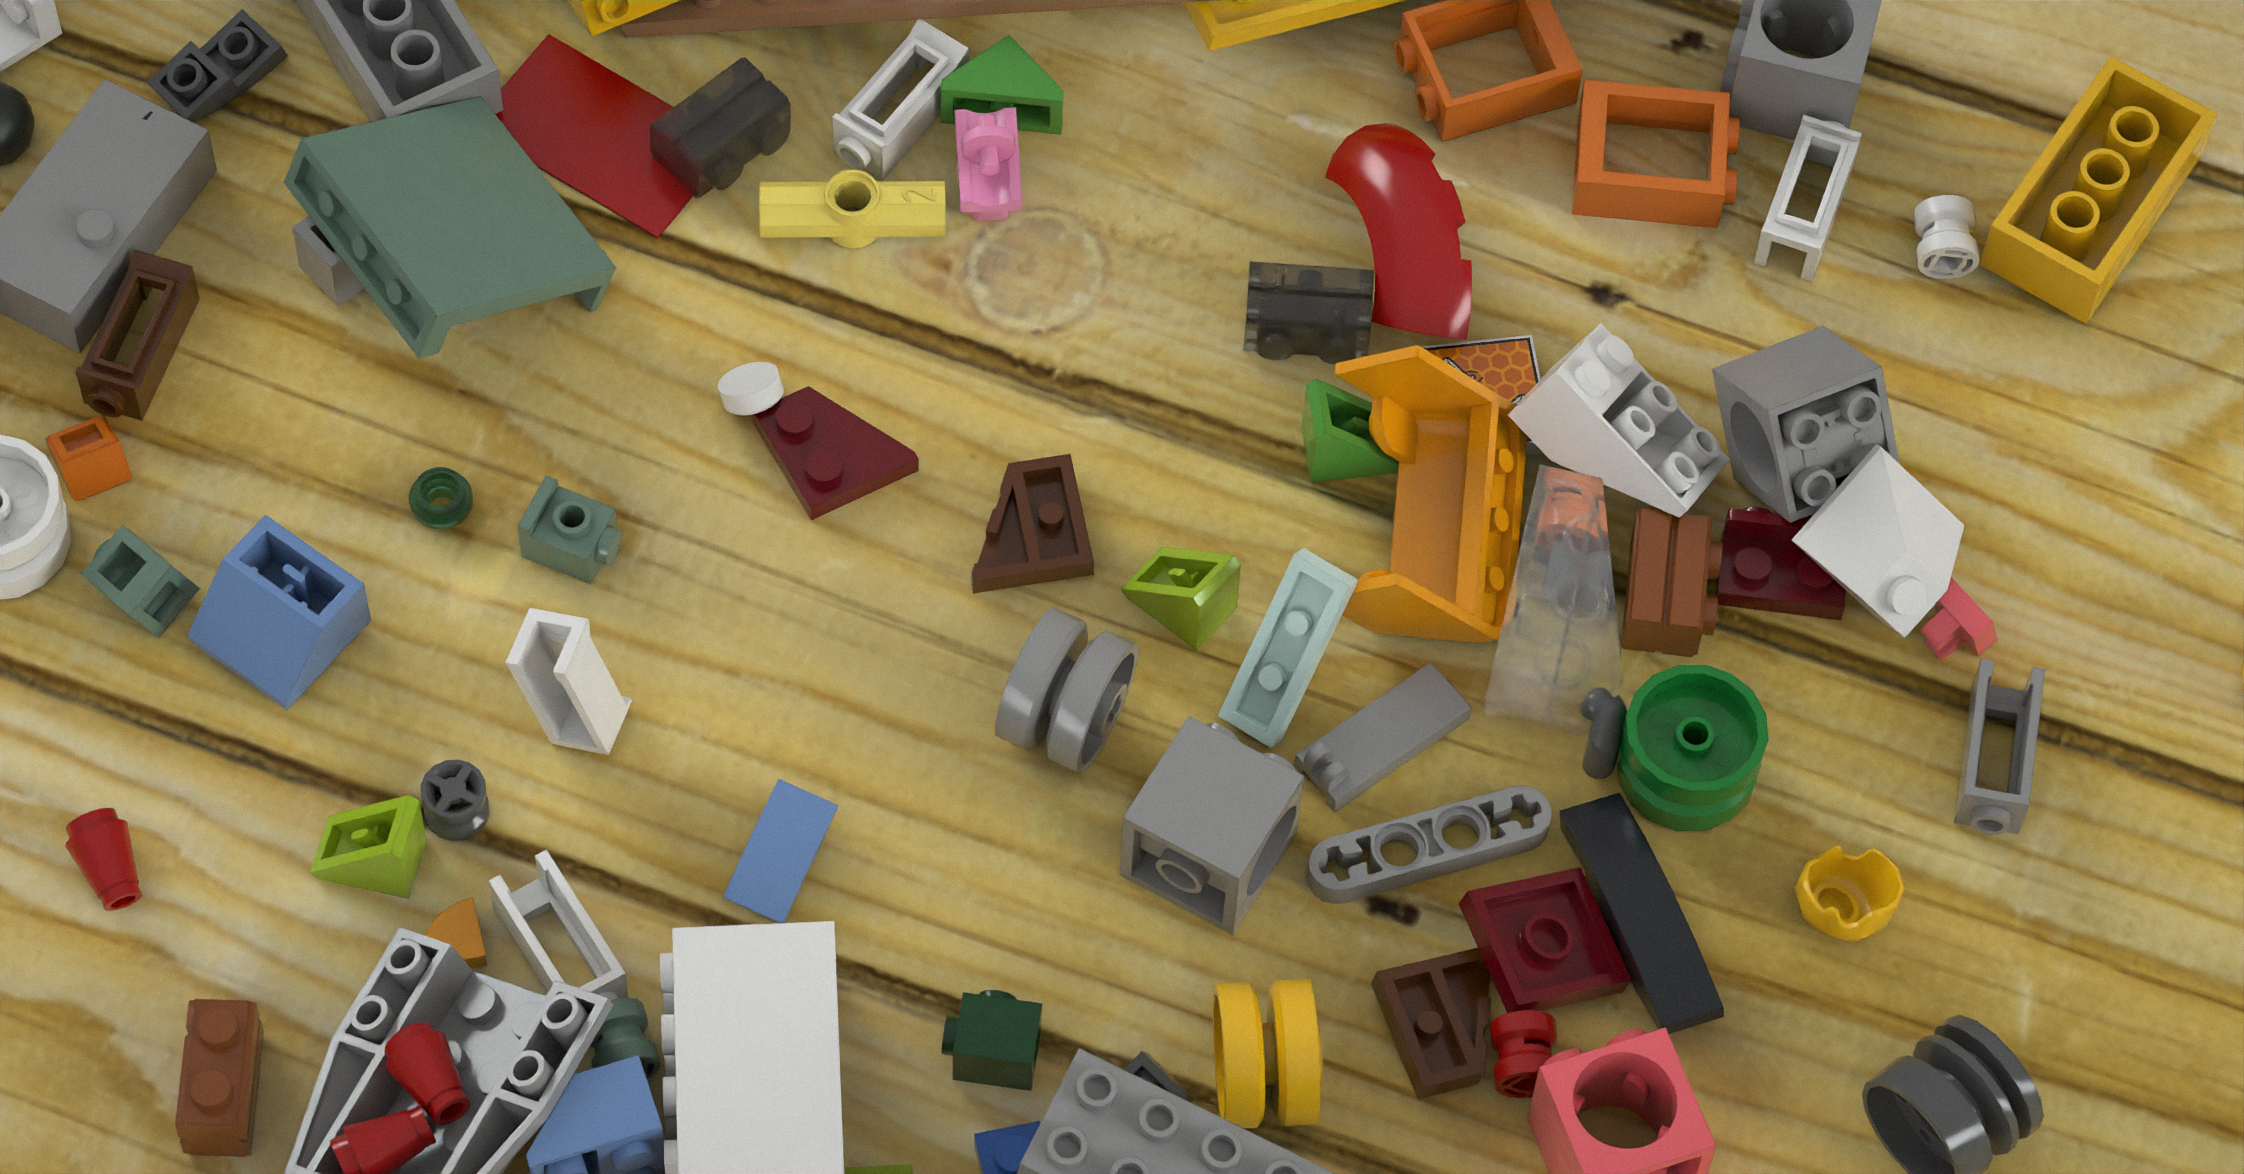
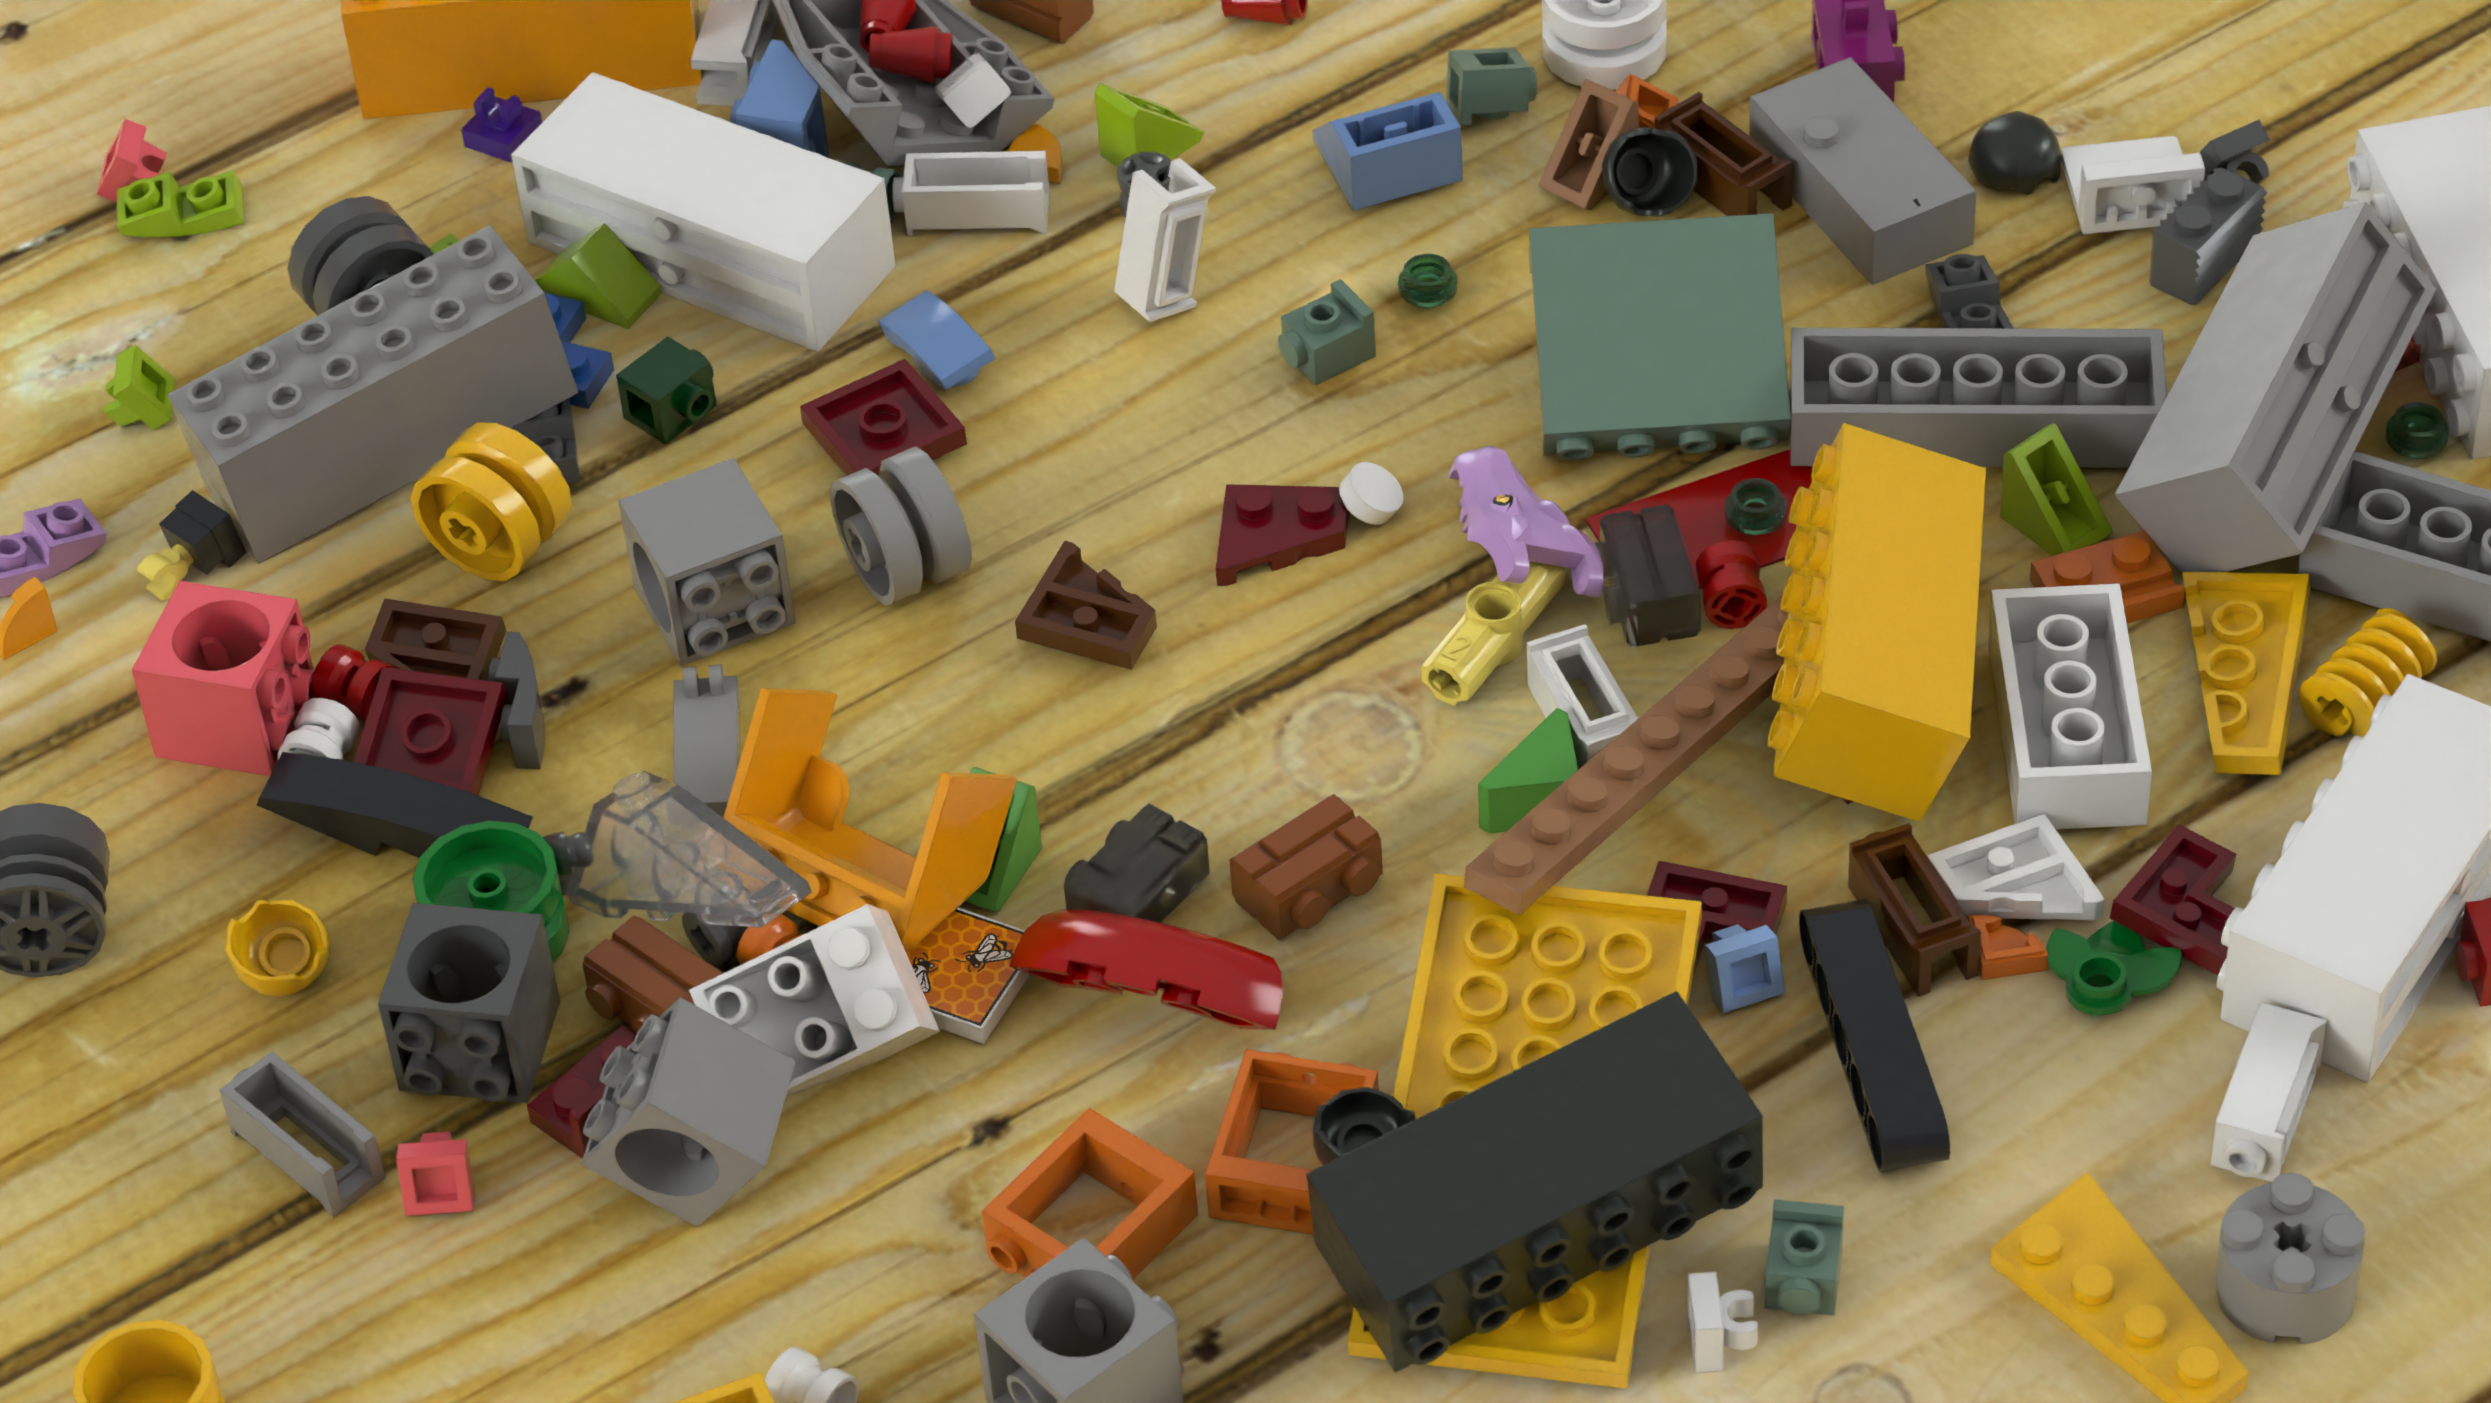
camera: 130 degrees right, 15 degrees down
(187, 446) = (1577, 158): none -> medium nougat slope
(198, 374) = (1649, 171): none -> pearl dark grey hair
(449, 988) = (973, 90): none -> white slope
(581, 87) = (1755, 507): none -> clear green plate
(690, 65) = (1730, 584): none -> red wheel
(741, 227) = (1518, 525): none -> lavender animal
(916, 831) = (882, 418): none -> dark red plate
(988, 163) = (1465, 723): bright pink hips -> none
(1186, 591) = (941, 672): lime slope -> none
(1210, 199) = (1307, 867): none -> dark orange brick
(1287, 647) = (810, 667): light aqua plate -> none
(1425, 835) = (595, 729): light grey beam -> none
(1435, 913) = (522, 714): none -> dark grey slope
(1595, 1029) = (322, 730): none -> white wheel
(1823, 629) = (469, 1002): none -> dark grey brick
(1825, 144) = (950, 1351): white window -> none
(1885, 541) = (524, 1112): white slope -> none

